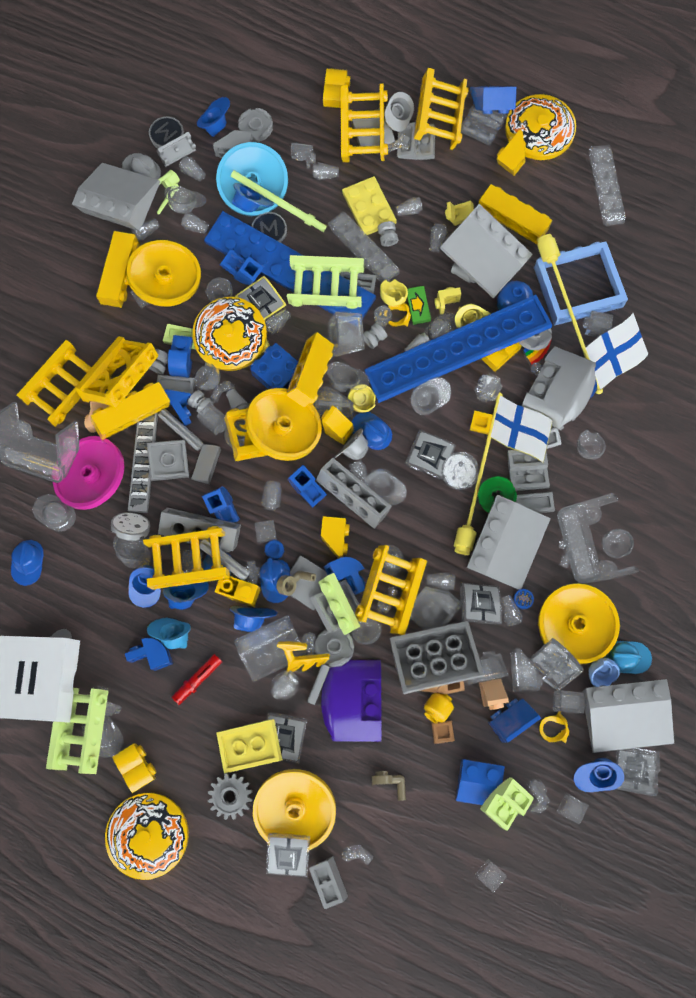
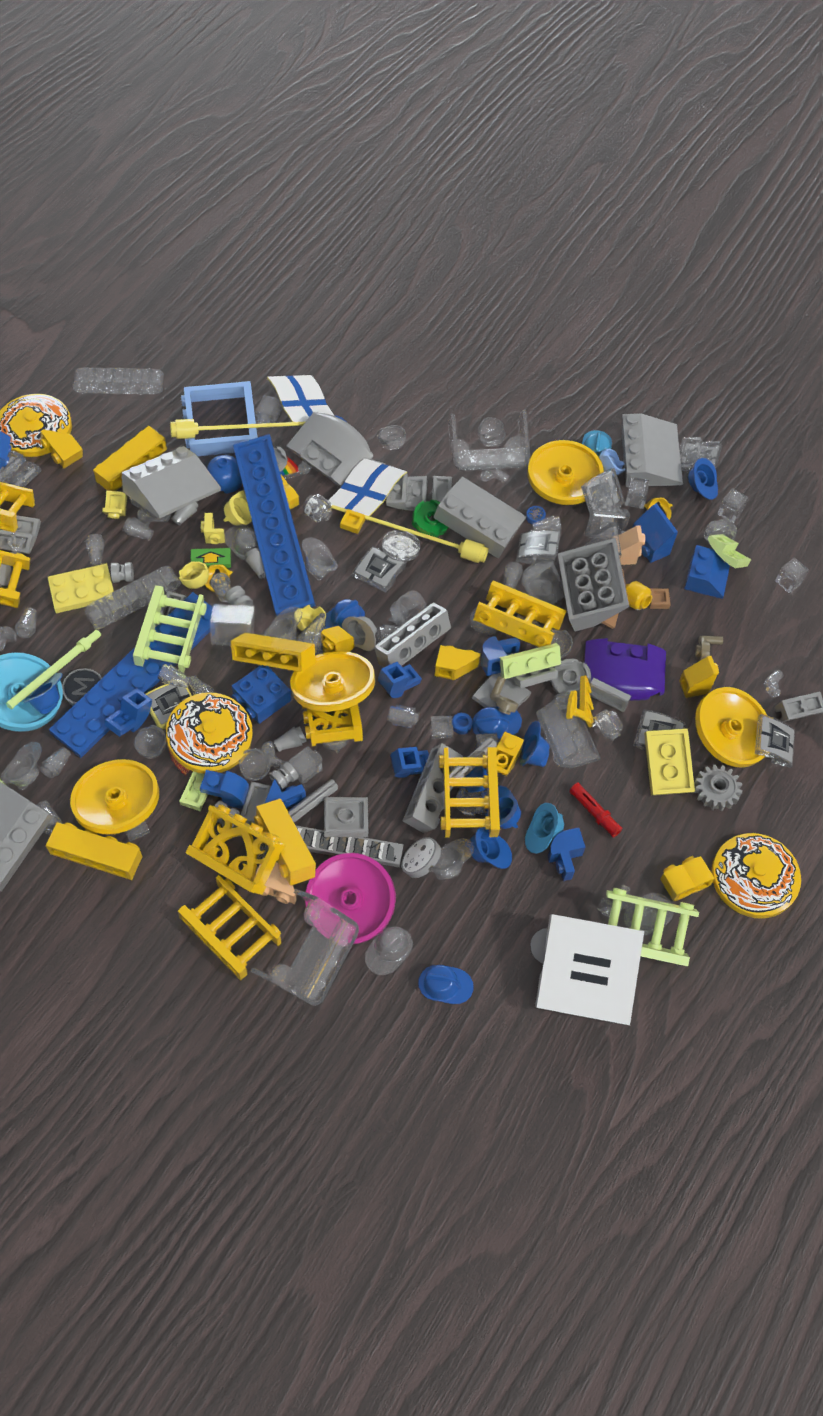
camera: 90 degrees left, 15 degrees down
(206, 463) = (356, 778): light grey slope -> none
(280, 294) = (173, 676): none -> clear cone
(345, 774) = (699, 677): none -> yellow slope

